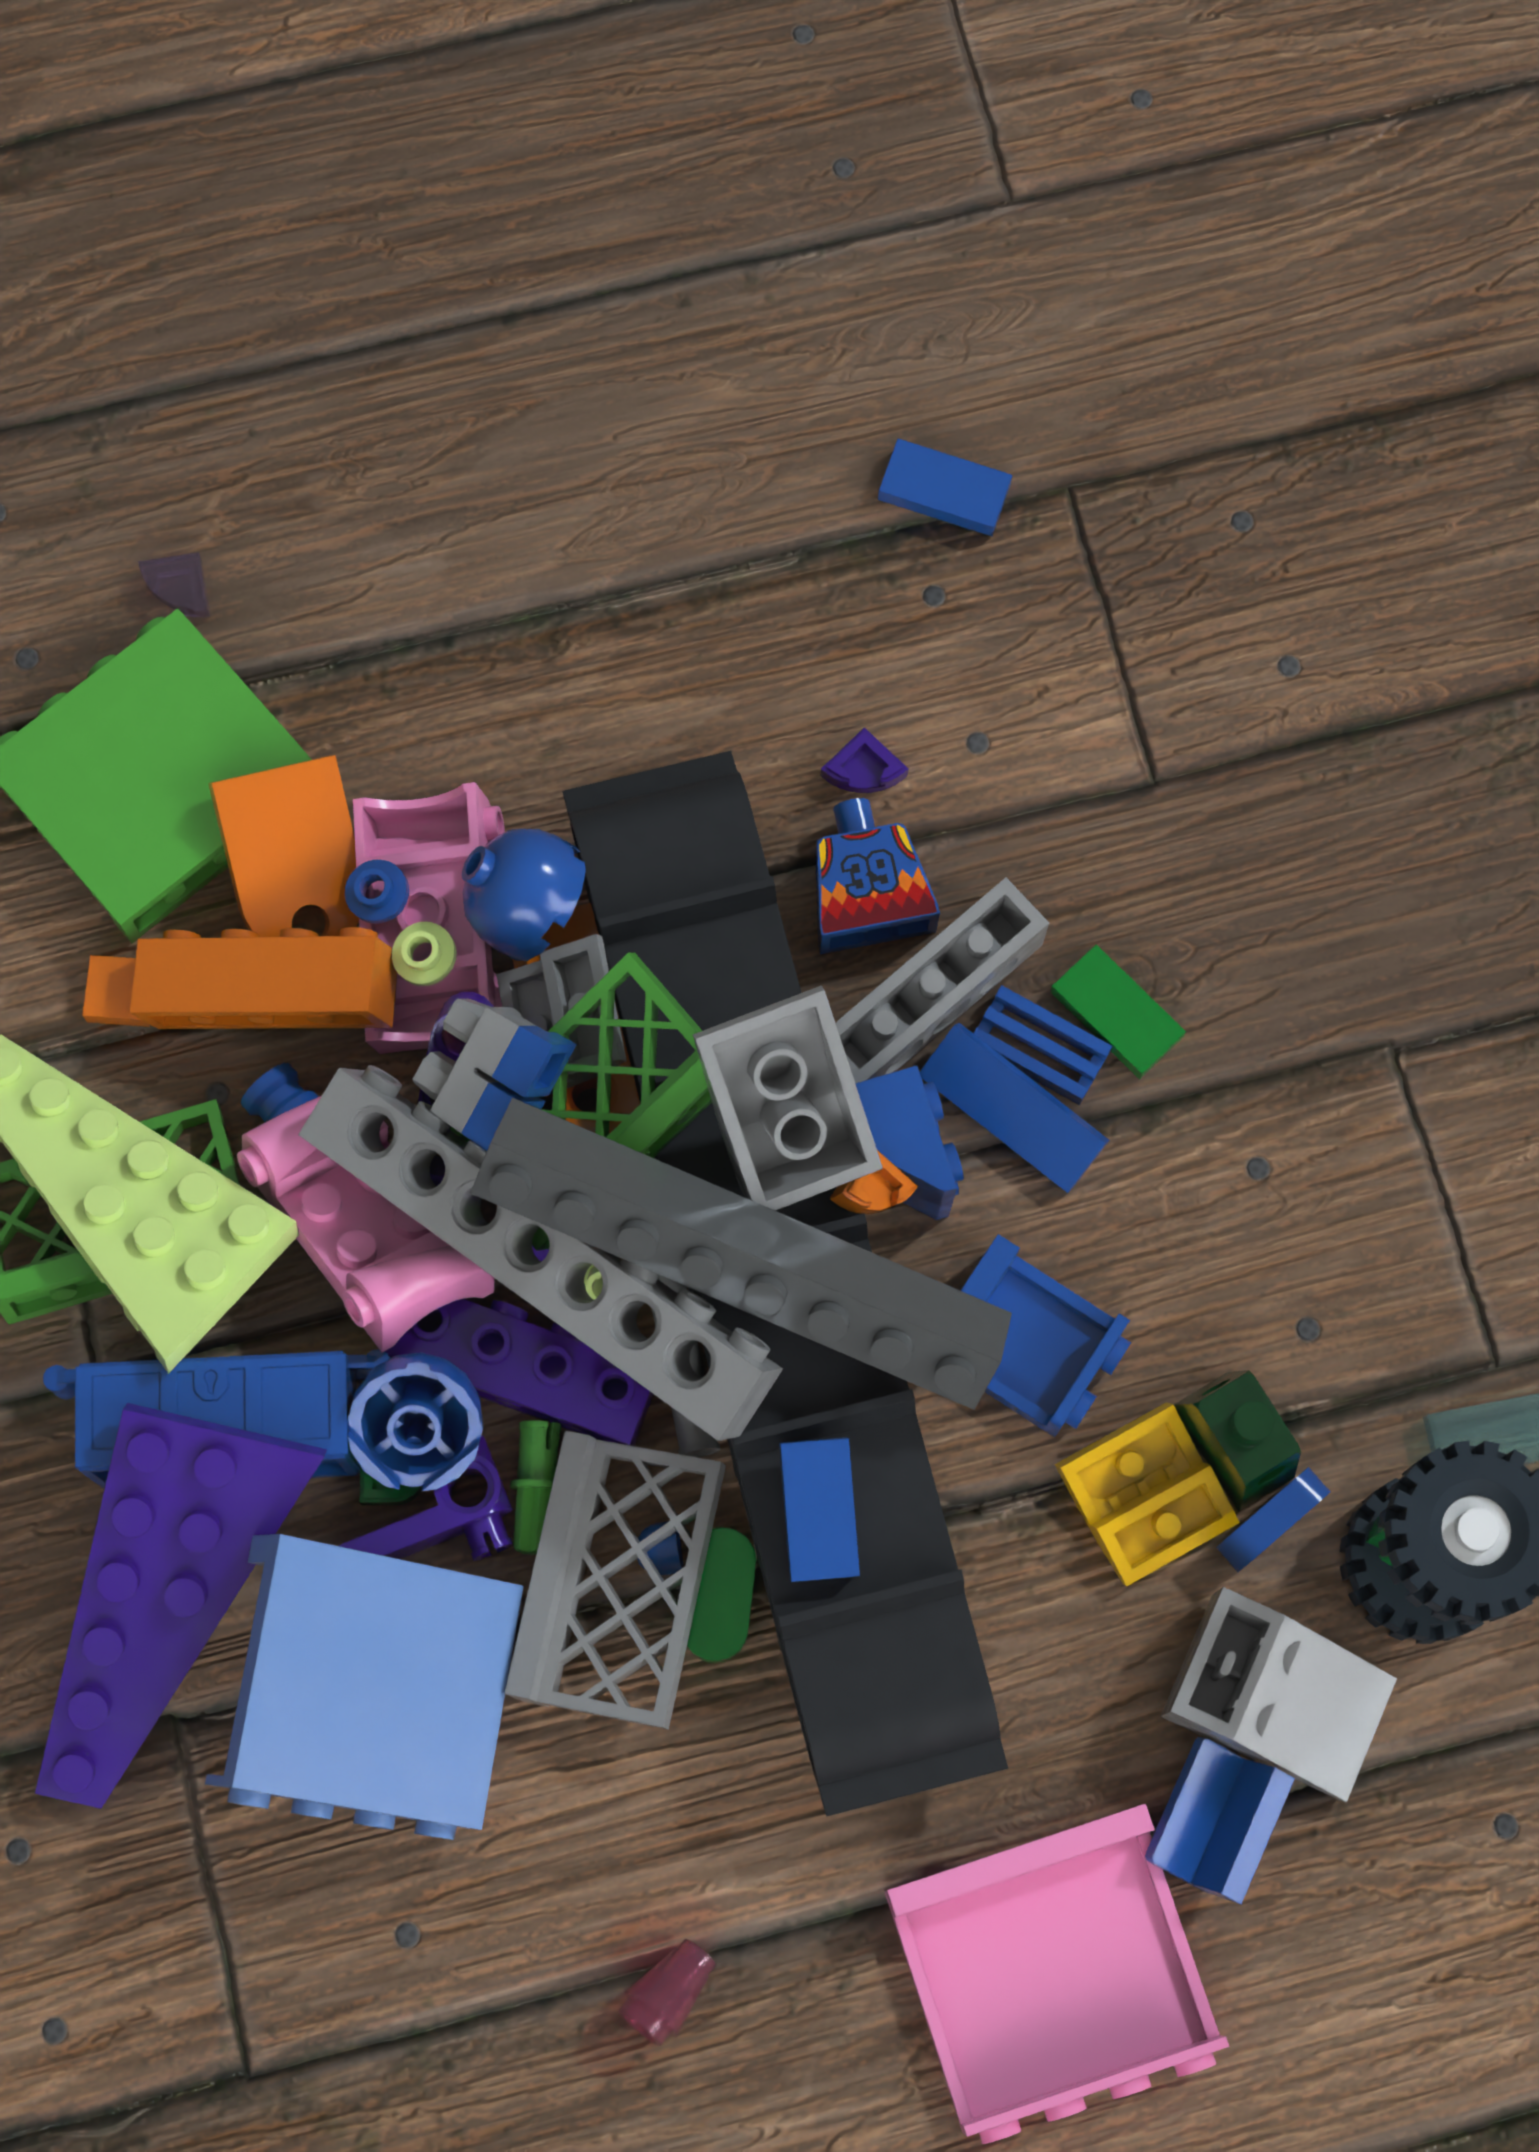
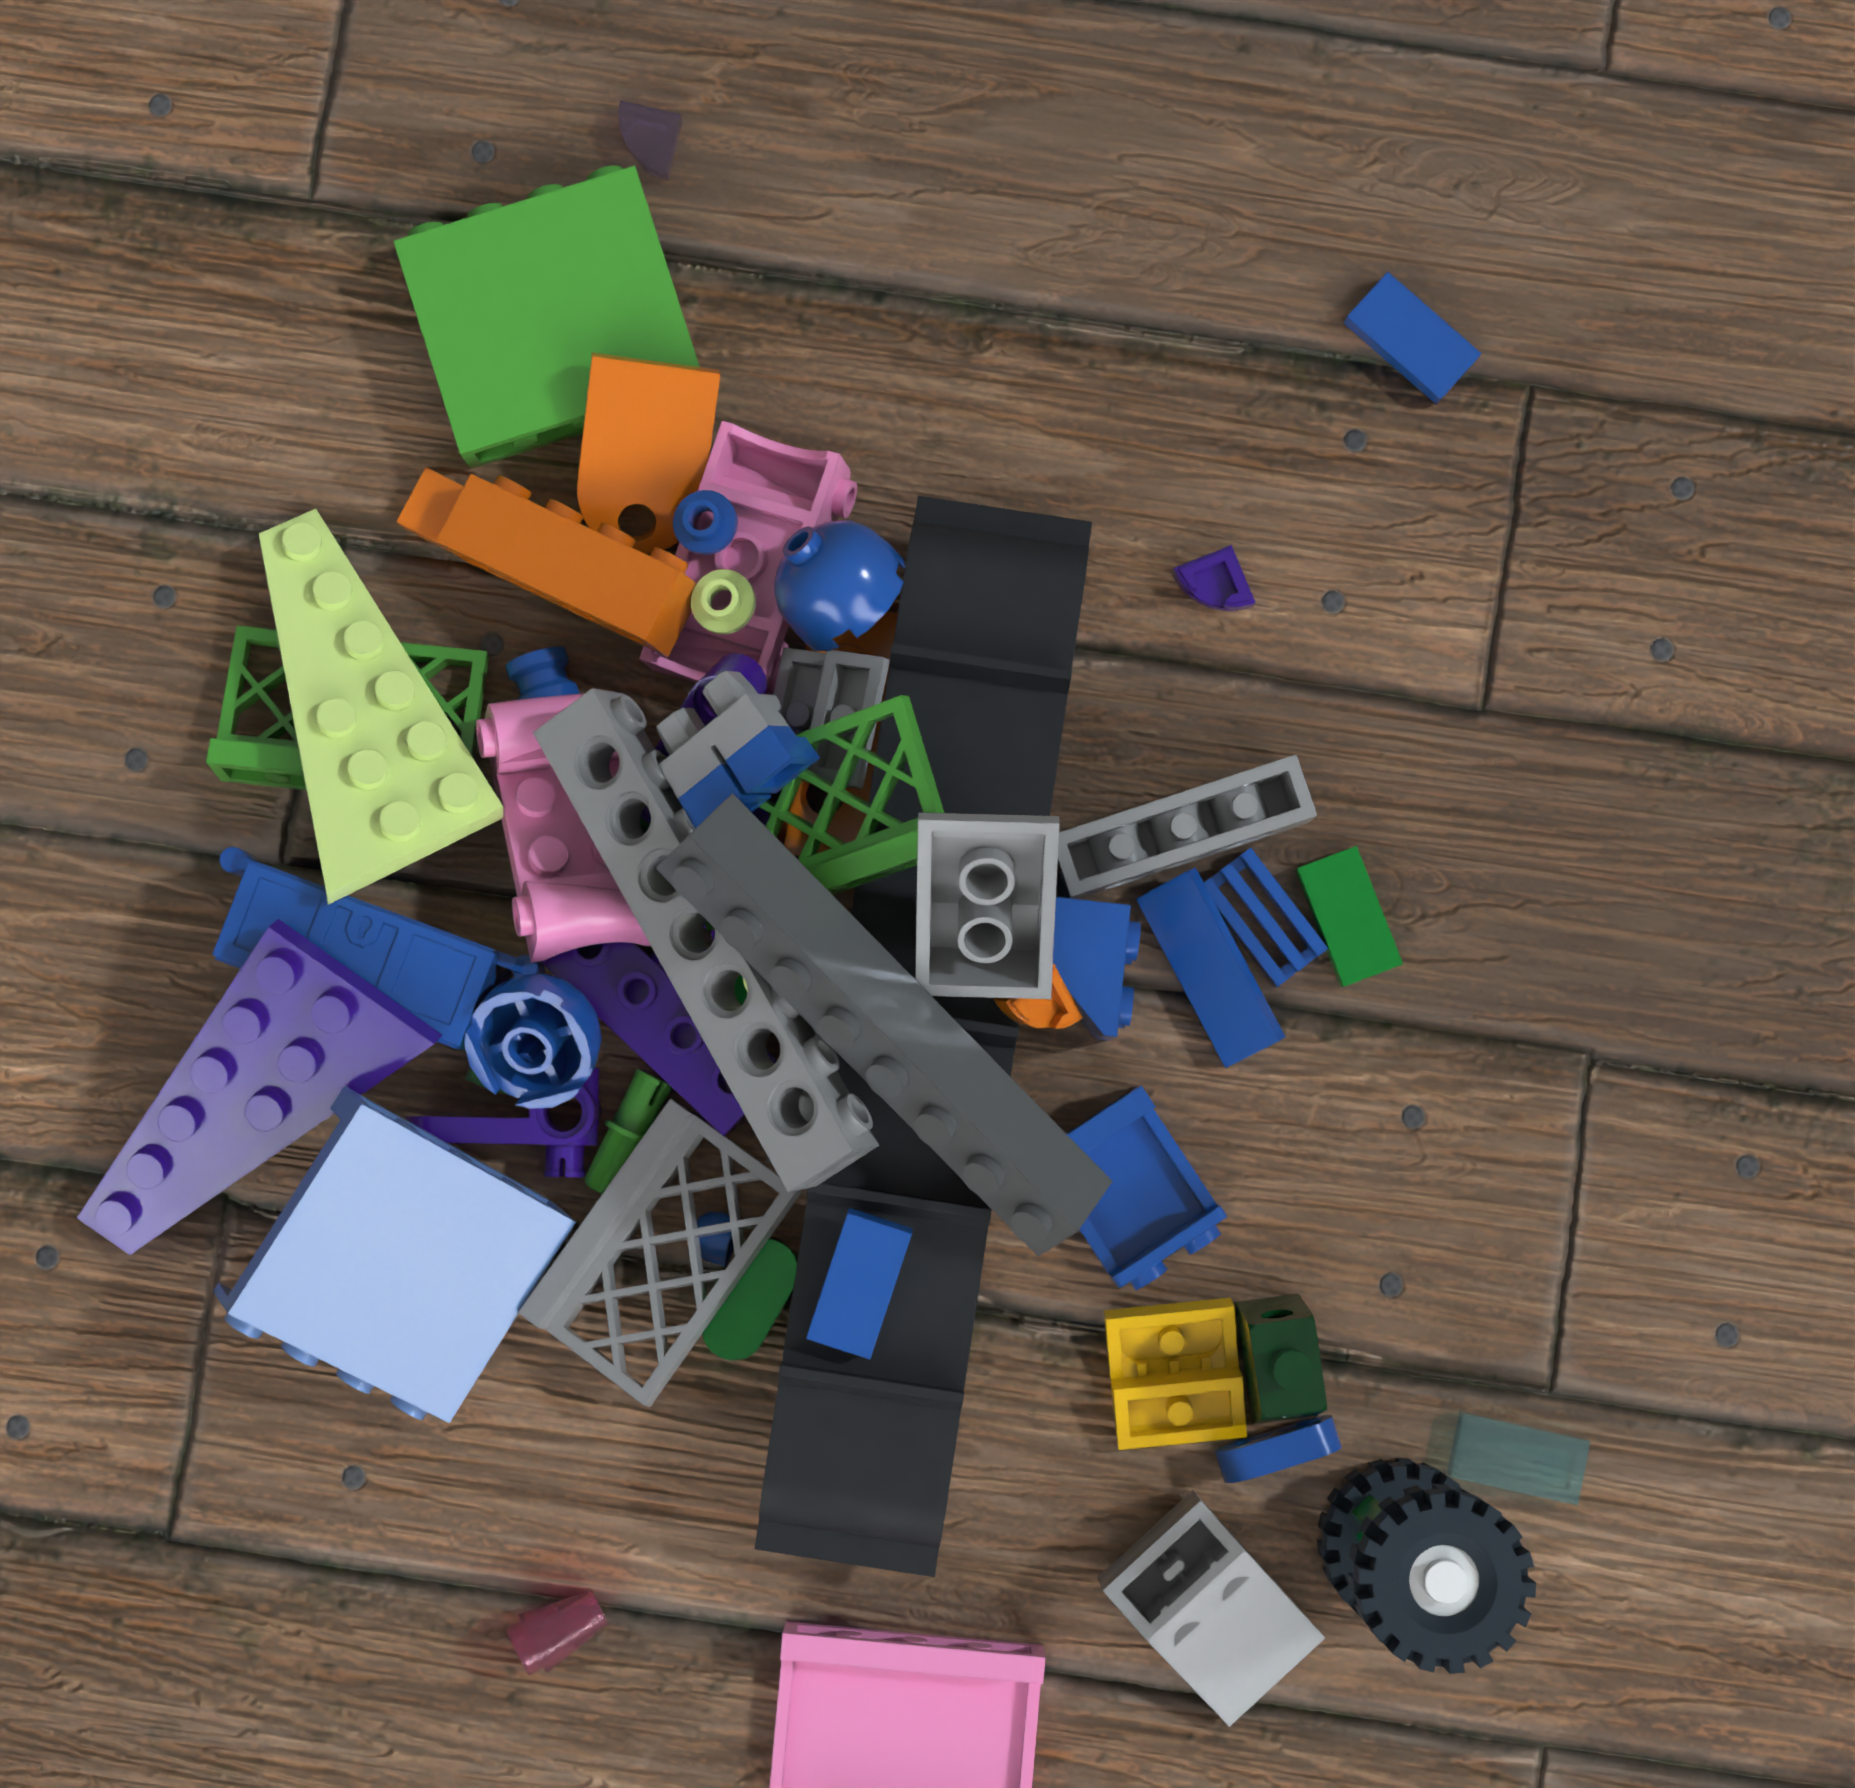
camera: 25 degrees right, 10 degrees up
(870, 883) = (1170, 698): torso -> none
(1219, 1820) = (1107, 1696): blue panel -> none

